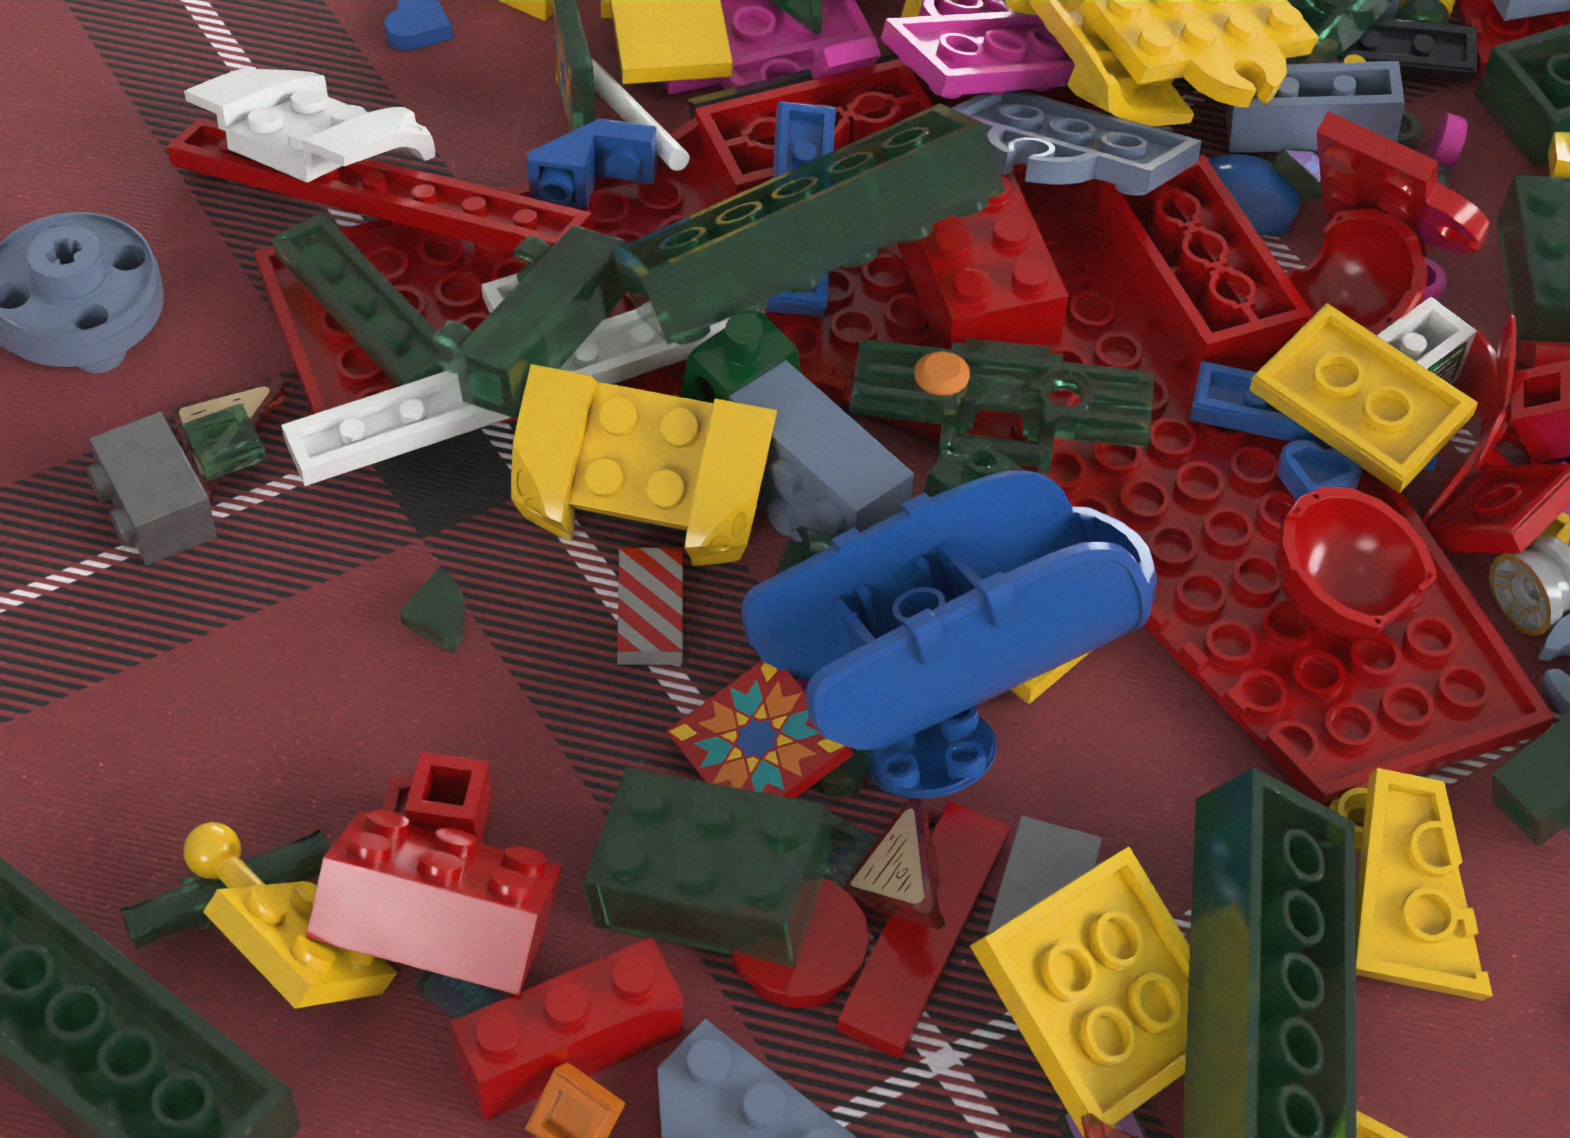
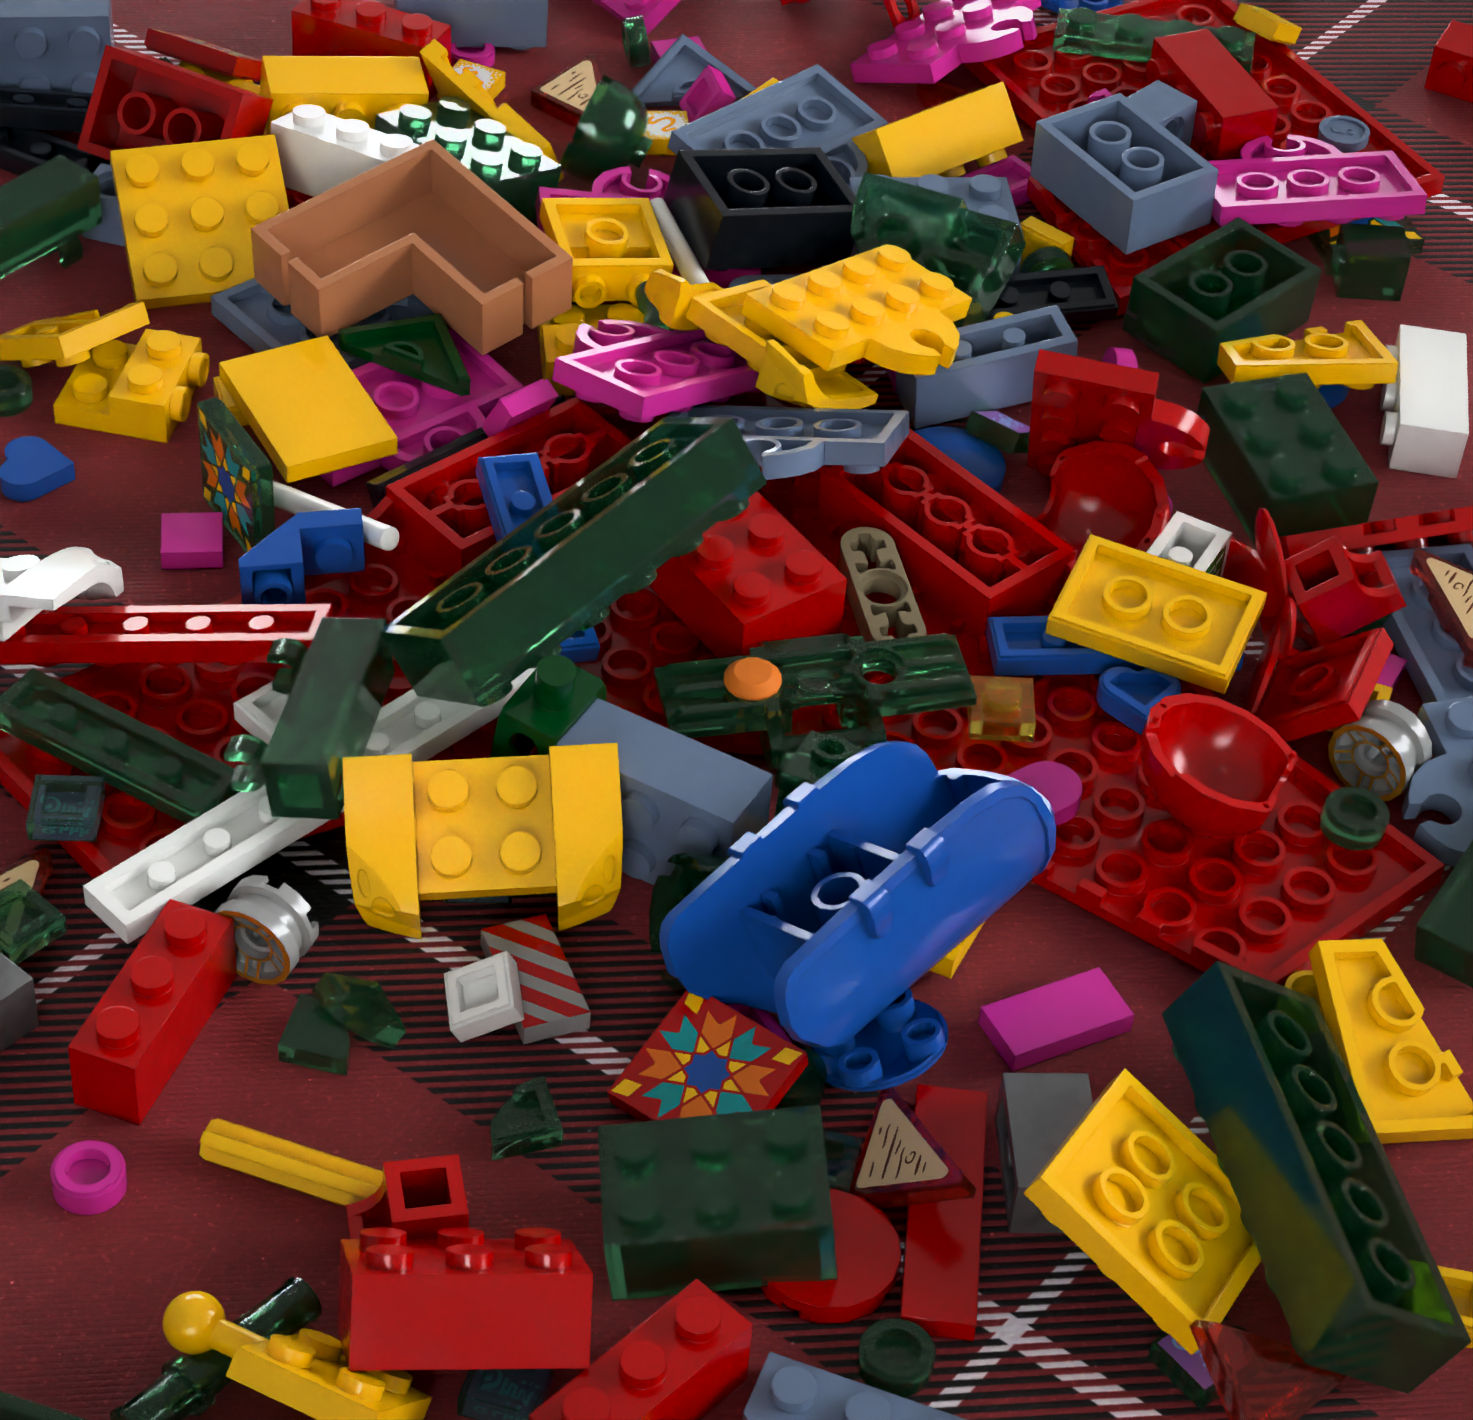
camera: 20 degrees left, 10 degrees down
(197, 688) = (88, 1177): none -> dark pink tile
(304, 552) = (153, 1012): none -> red brick
(305, 347) = (65, 808): none -> tile
(361, 720) = (287, 1163): none -> yellow axle
(424, 502) = (268, 929): none -> light grey wheel
(483, 594) = (360, 1007): none -> clear green tile
(525, 118) = (192, 540): none -> dark pink tile
(585, 739) = (526, 1122): none -> clear green tile
(594, 612) = (483, 996): none -> white tile
(820, 1056) = (896, 1357): none -> clear green tile
(1110, 770) = (1055, 1019): none -> dark pink tile
(1121, 300) = (886, 577): none -> dark tan beam
(1178, 454) = (1002, 709): none -> clear yellow plate
(1184, 549) = (1057, 784): none -> dark pink tile
(1480, 649) = (1354, 818): none -> clear green tile

